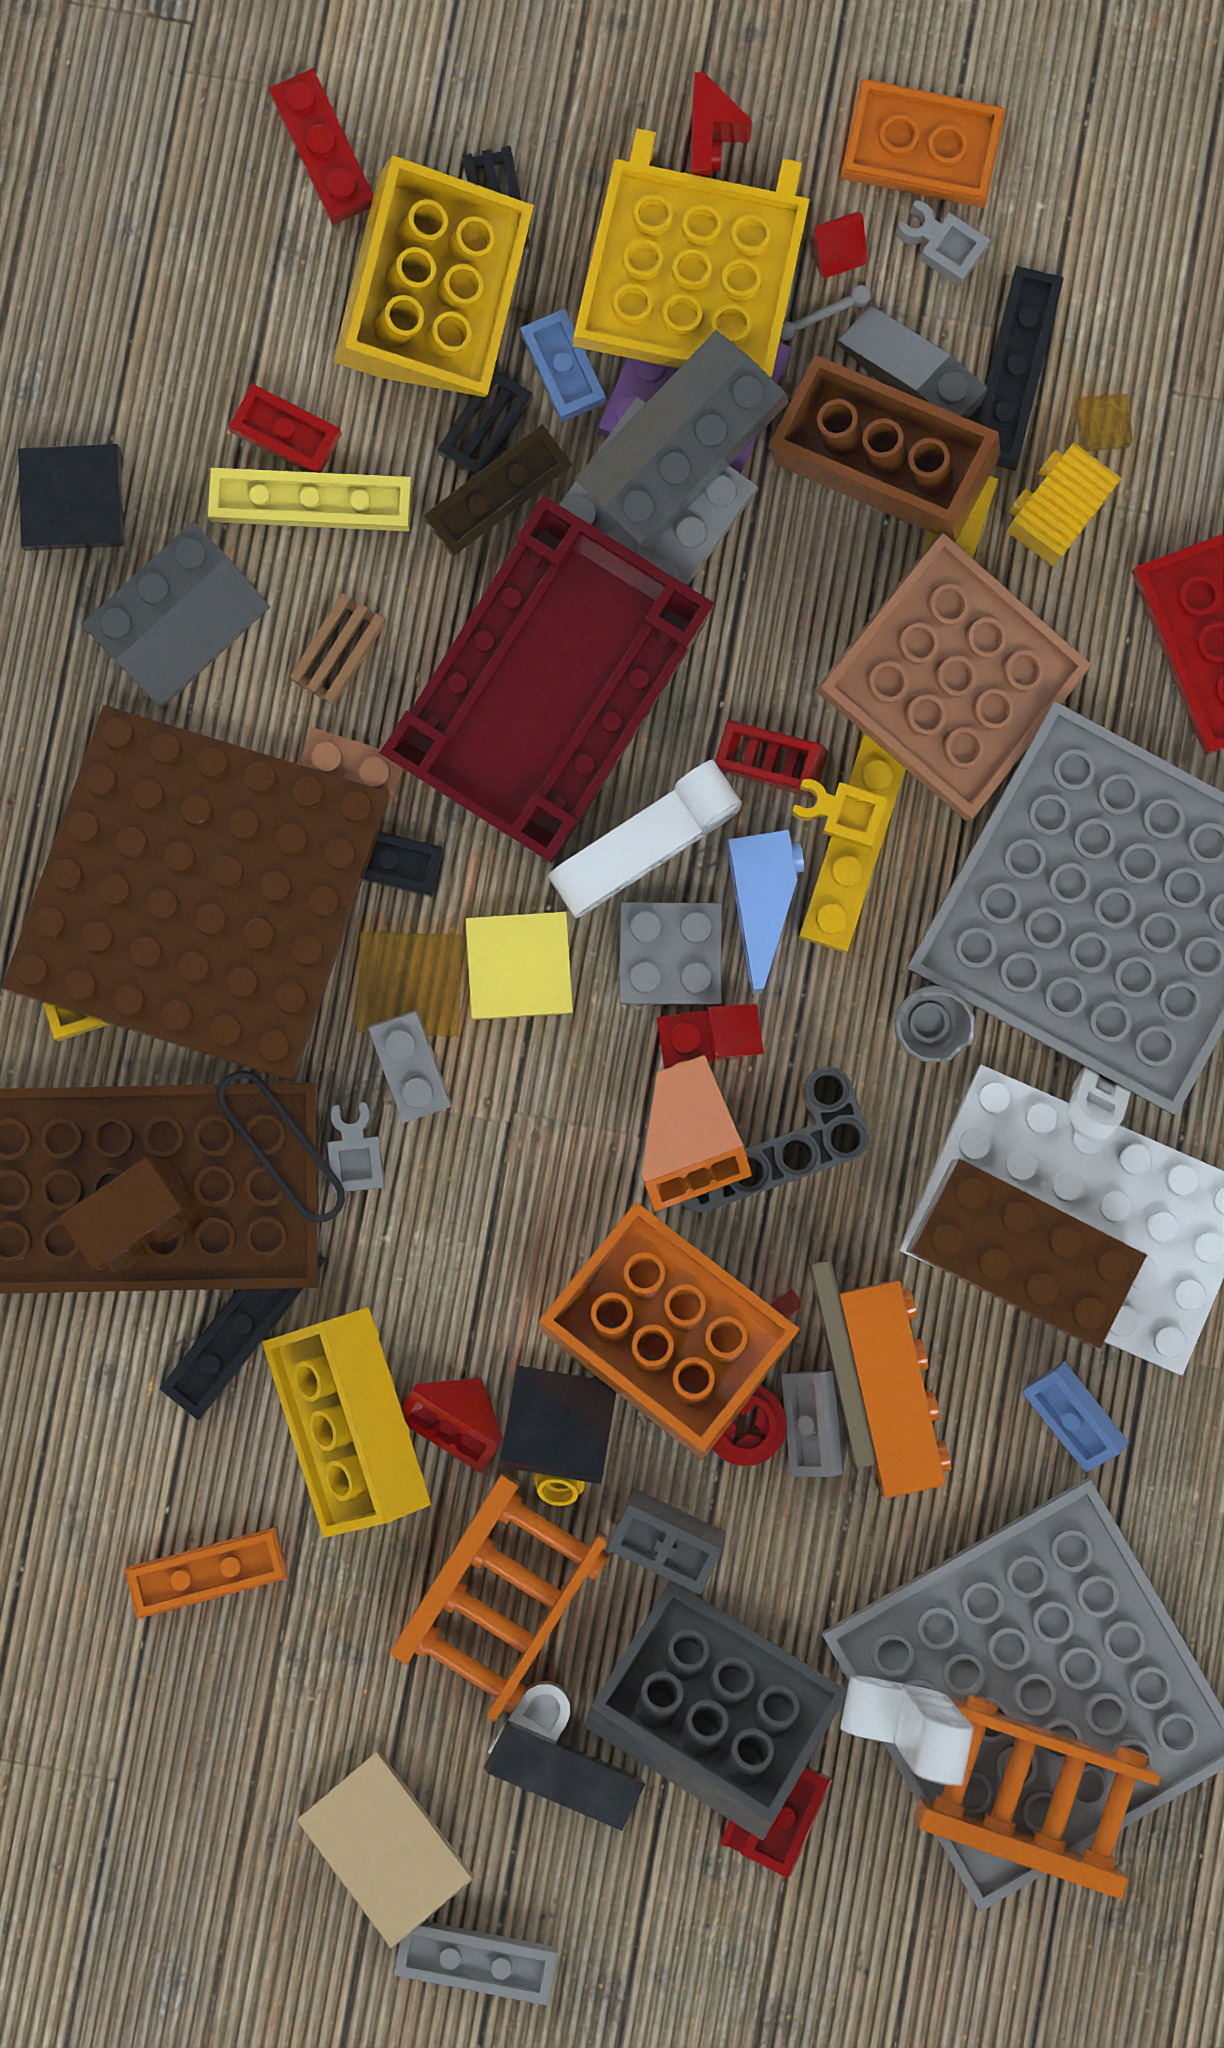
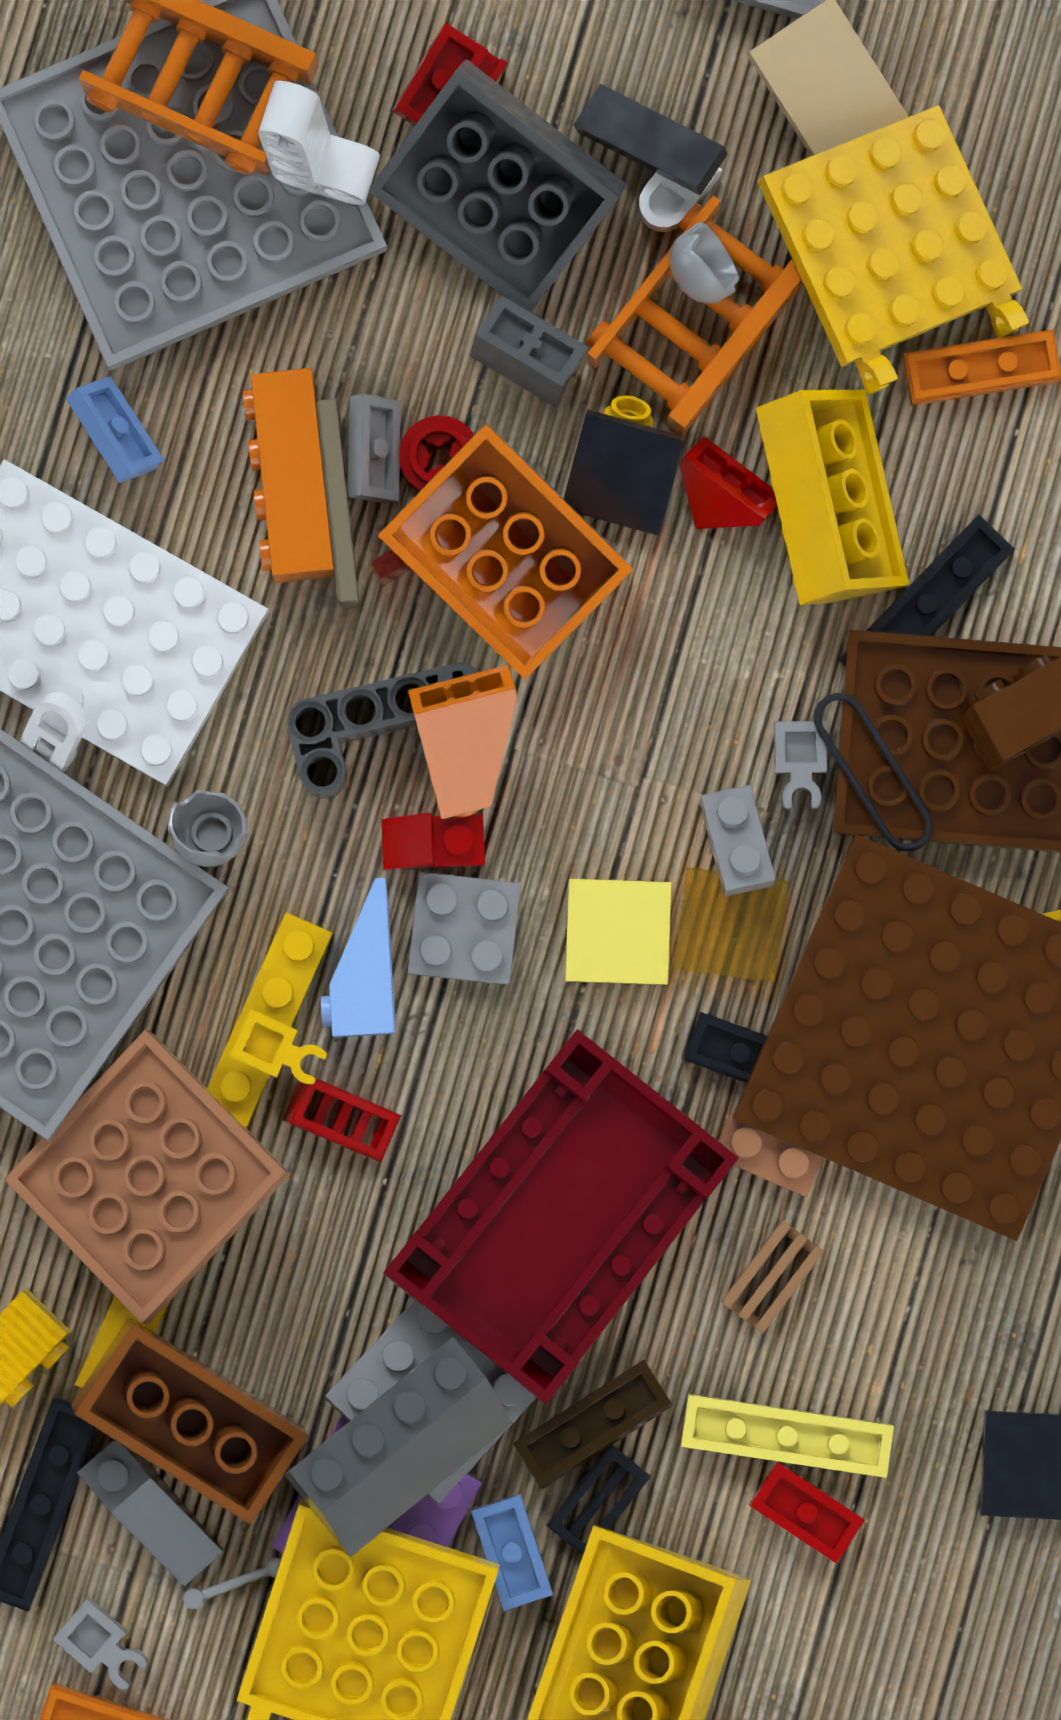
camera: 175 degrees left, 0 degrees up
(176, 615) = (934, 1325): dark grey slope -> none
(307, 1693) = (892, 241): none -> yellow plate
(497, 1644) = (702, 265): none -> light grey hair
(647, 840) = (478, 1042): white beam -> none
(839, 245) = (209, 1651): red slope -> none
(1026, 1253) = (146, 588): reddish brown brick -> none

